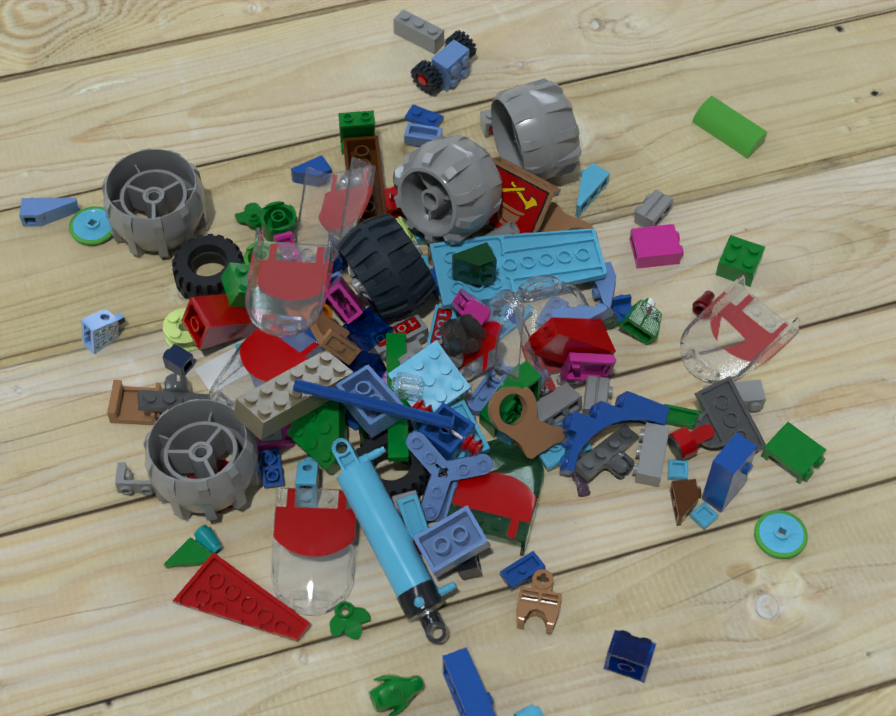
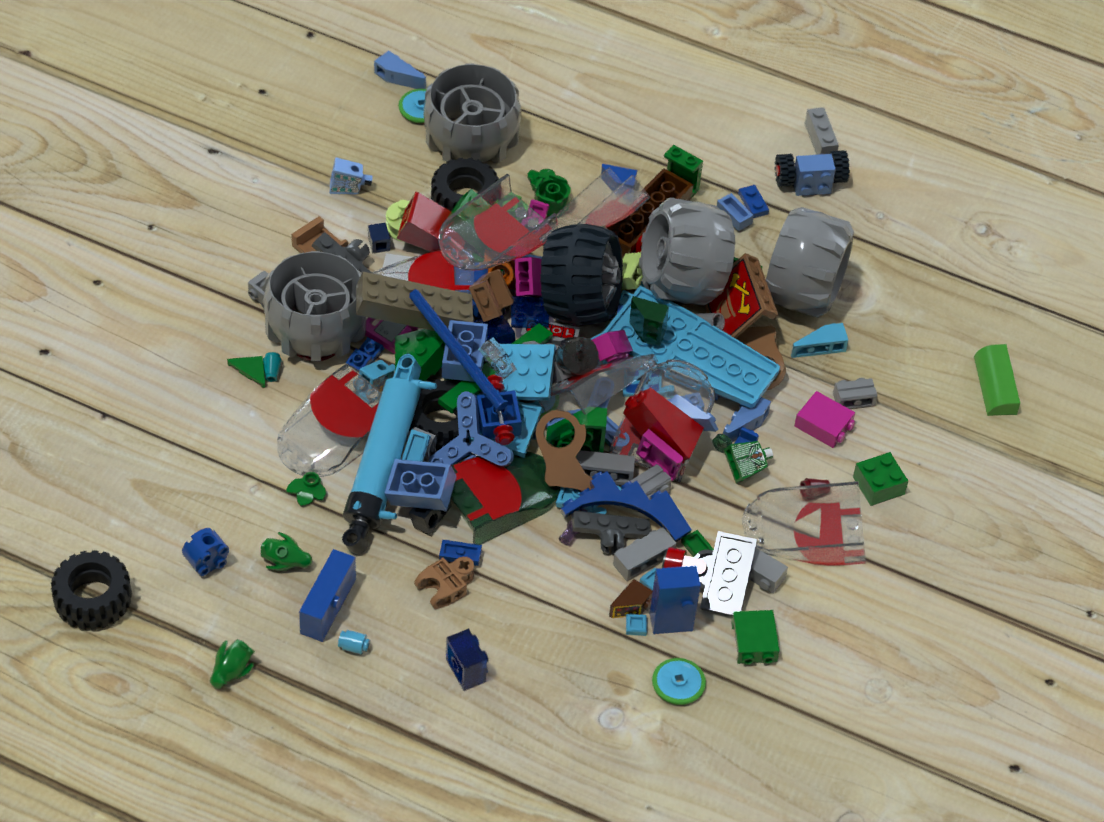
camera: 40 degrees right, 5 degrees down
(233, 596) = (249, 415): red wing -> none

